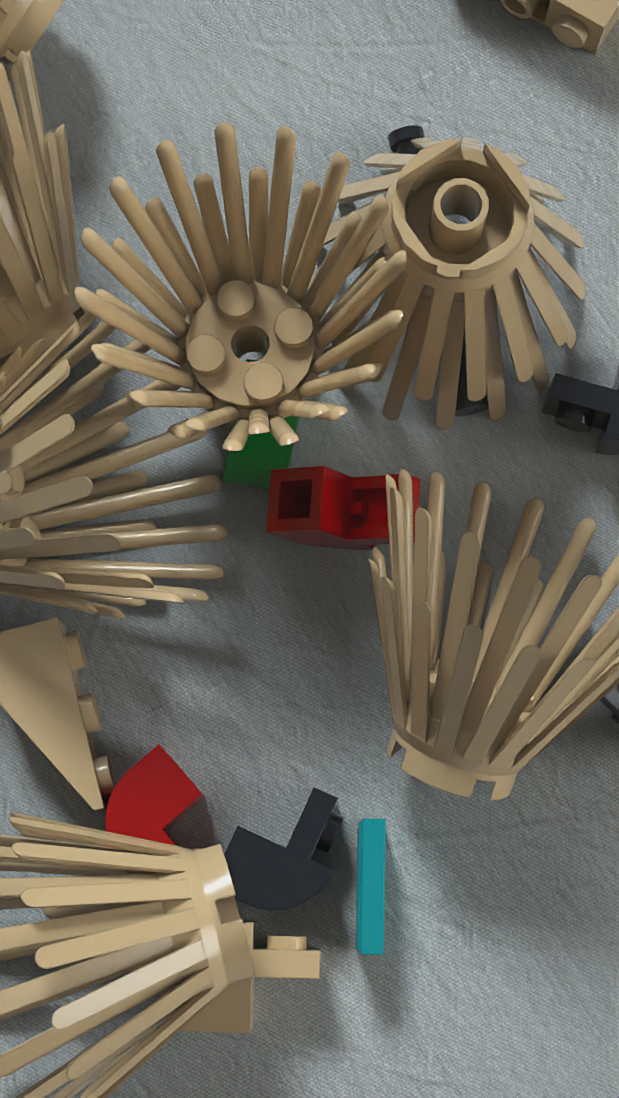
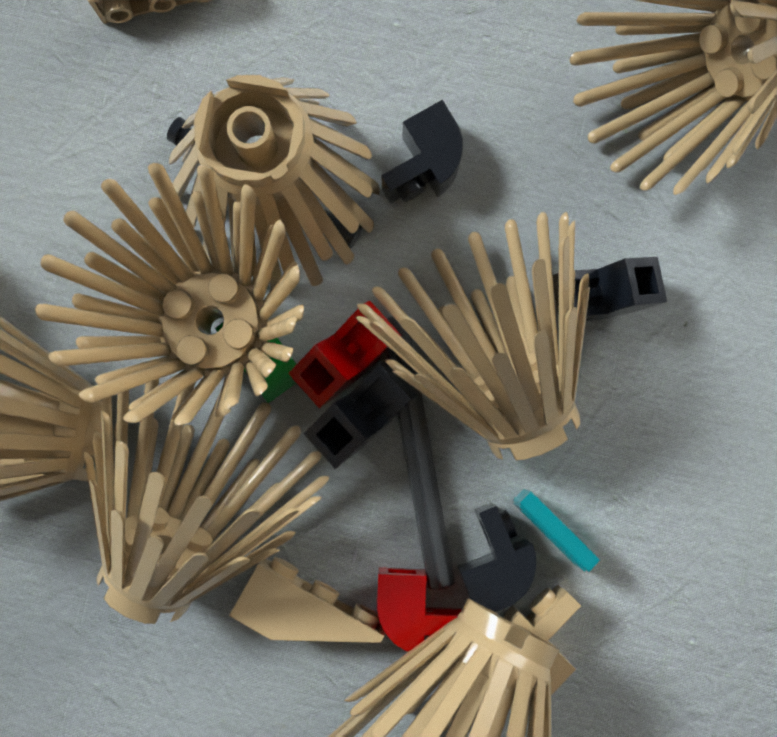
camera: 45 degrees left, 5 degrees up
(290, 711) = (423, 483): none -> dark grey axle
(296, 582) = (360, 415): none -> black brick

